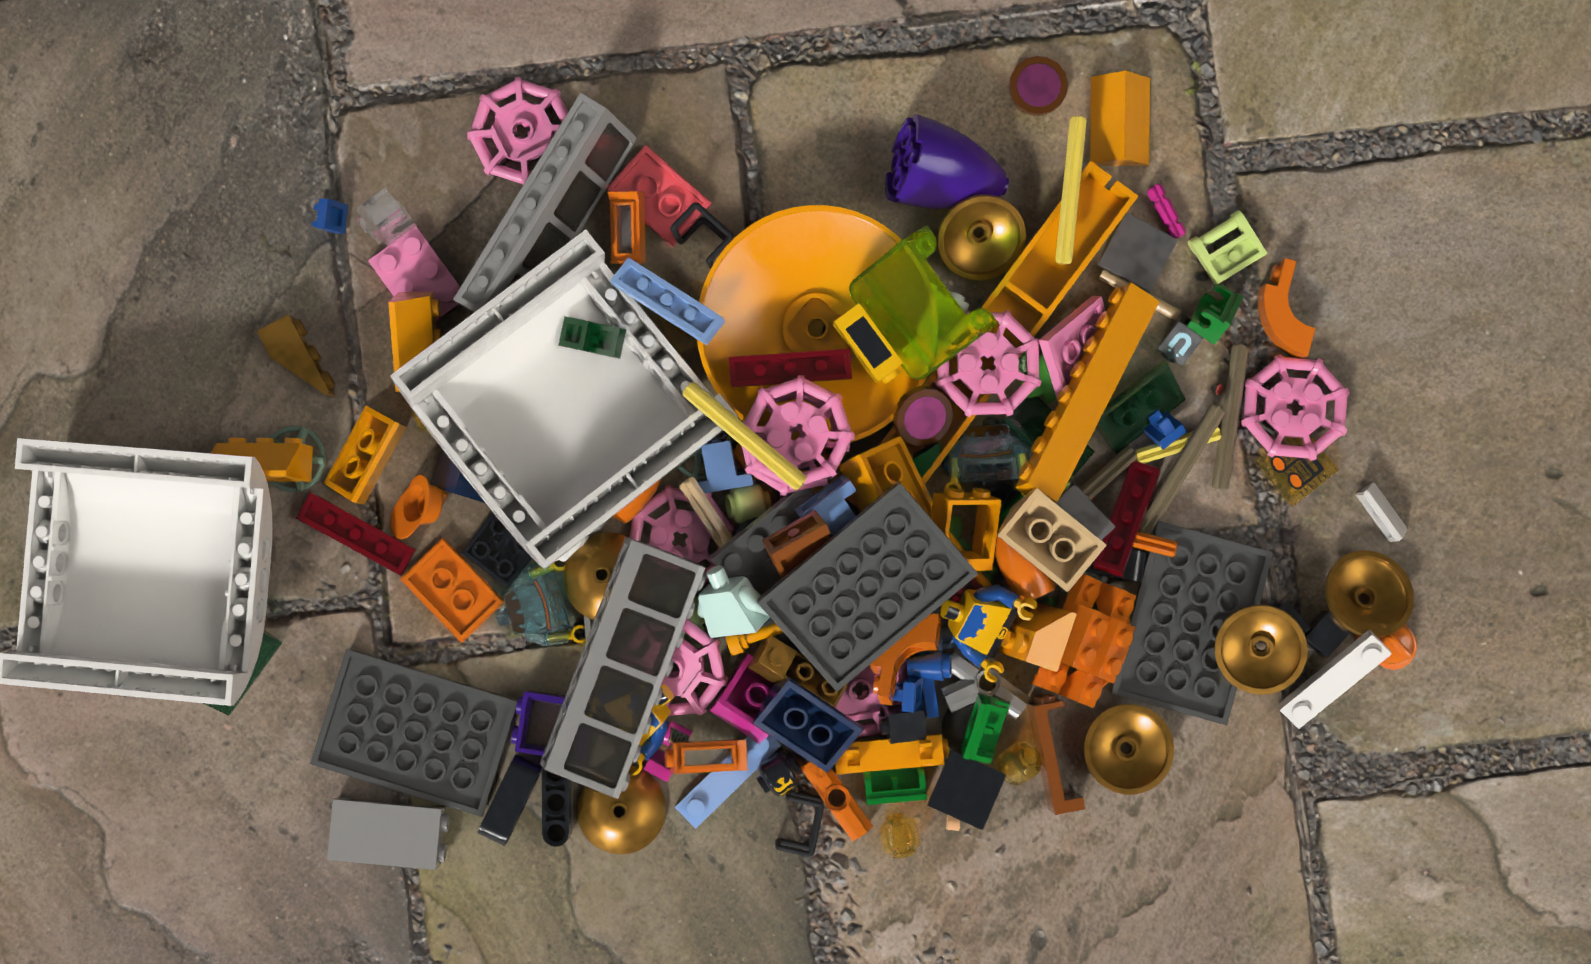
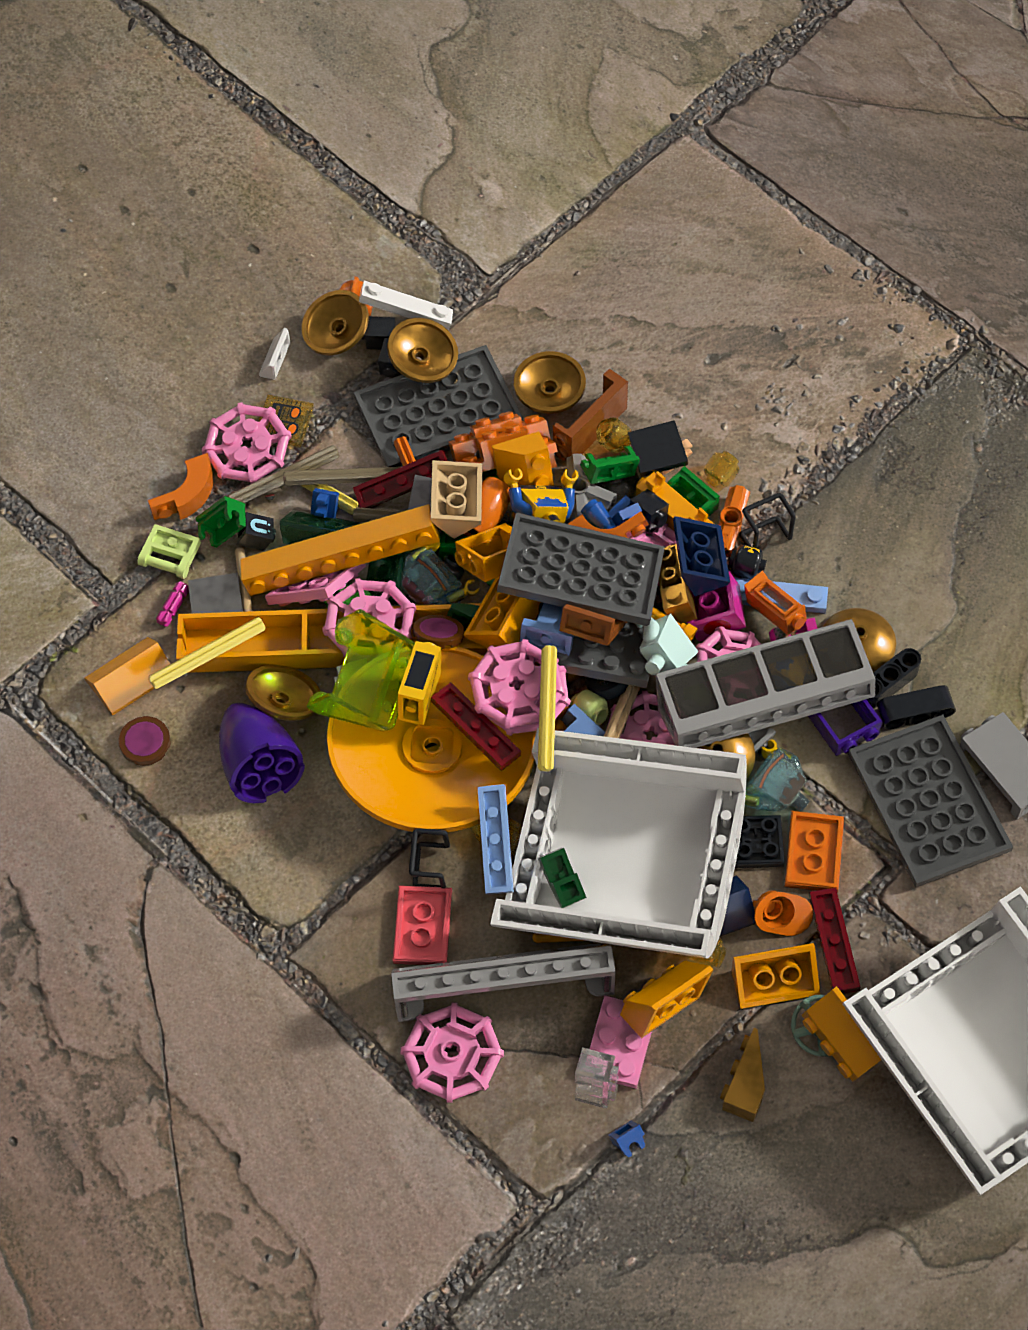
camera: 120 degrees left, 25 degrees down
(627, 226) = (464, 920): orange window -> none

